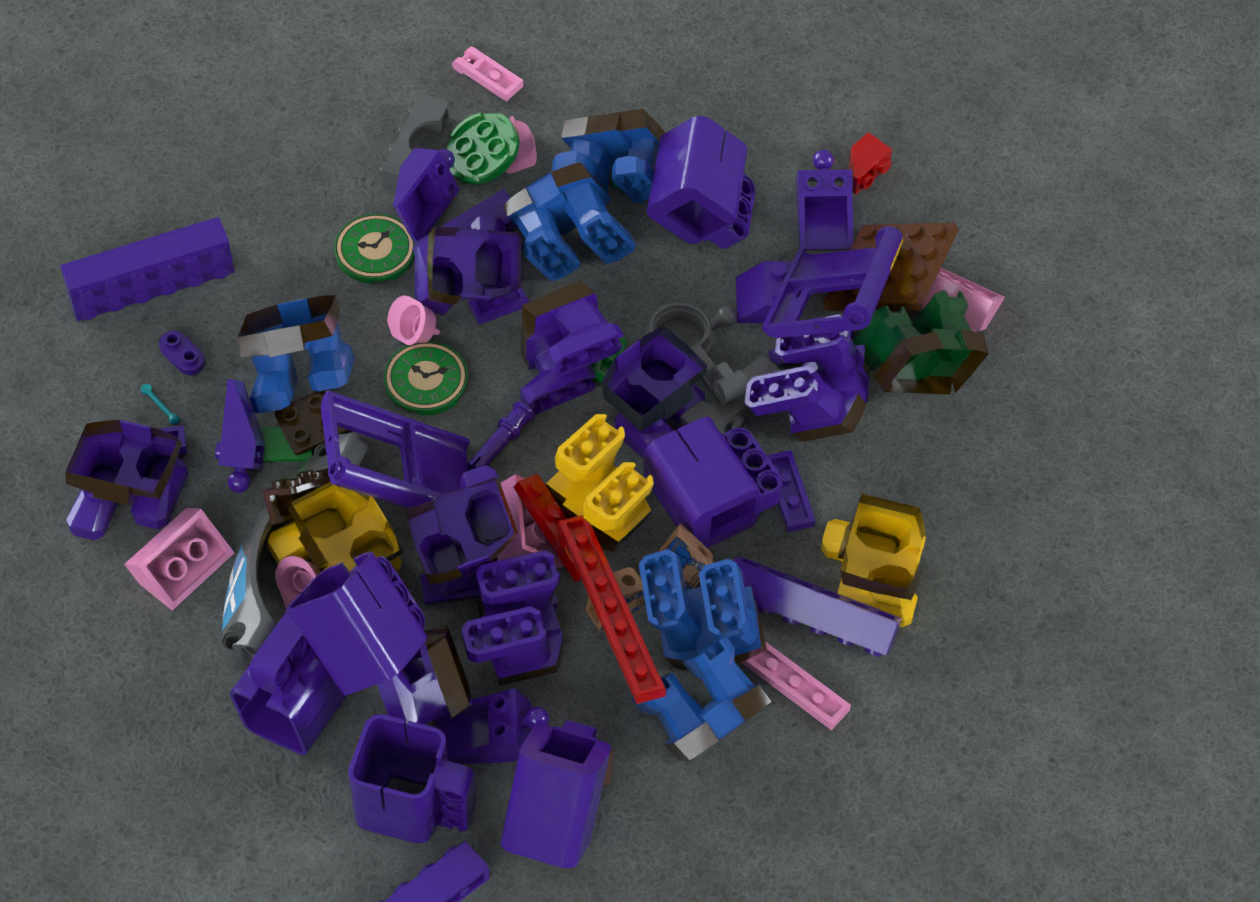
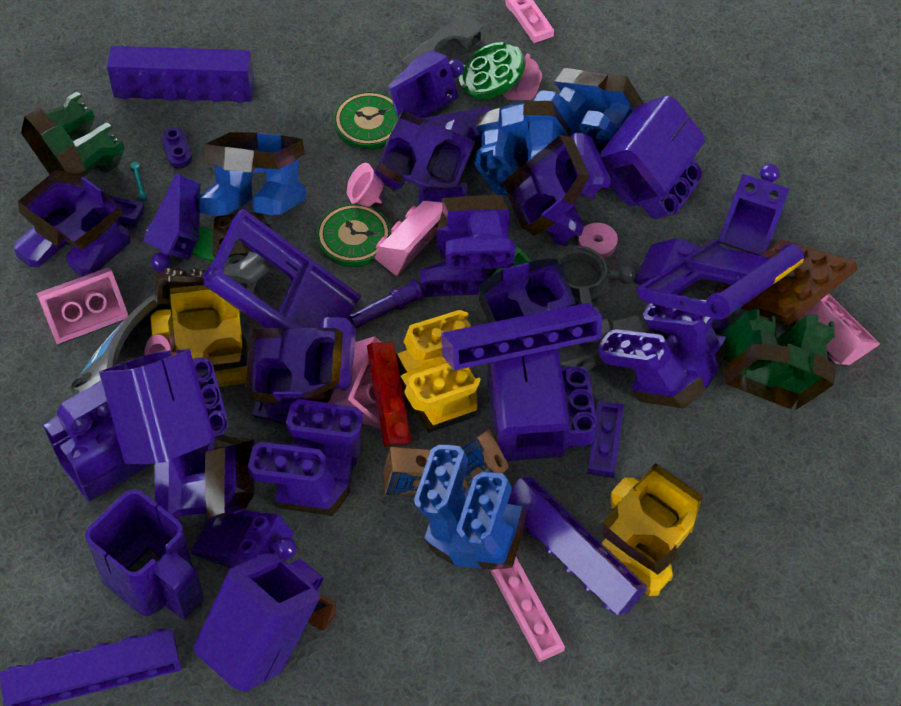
camera: 25 degrees right, 0 degrees up
(65, 401) = (52, 134): none -> dark green piece
(492, 355) = (409, 237): none -> bright pink slope
(612, 610) = (388, 483): red tile -> none
(624, 251) = (547, 186): none -> dark purple piece
(672, 417) = (521, 336): none -> dark purple brick
(680, 282) = (602, 232): none -> bright pink piece
(733, 702) = (408, 606): blue piece -> none
(867, 161) = (811, 188): red slope -> none

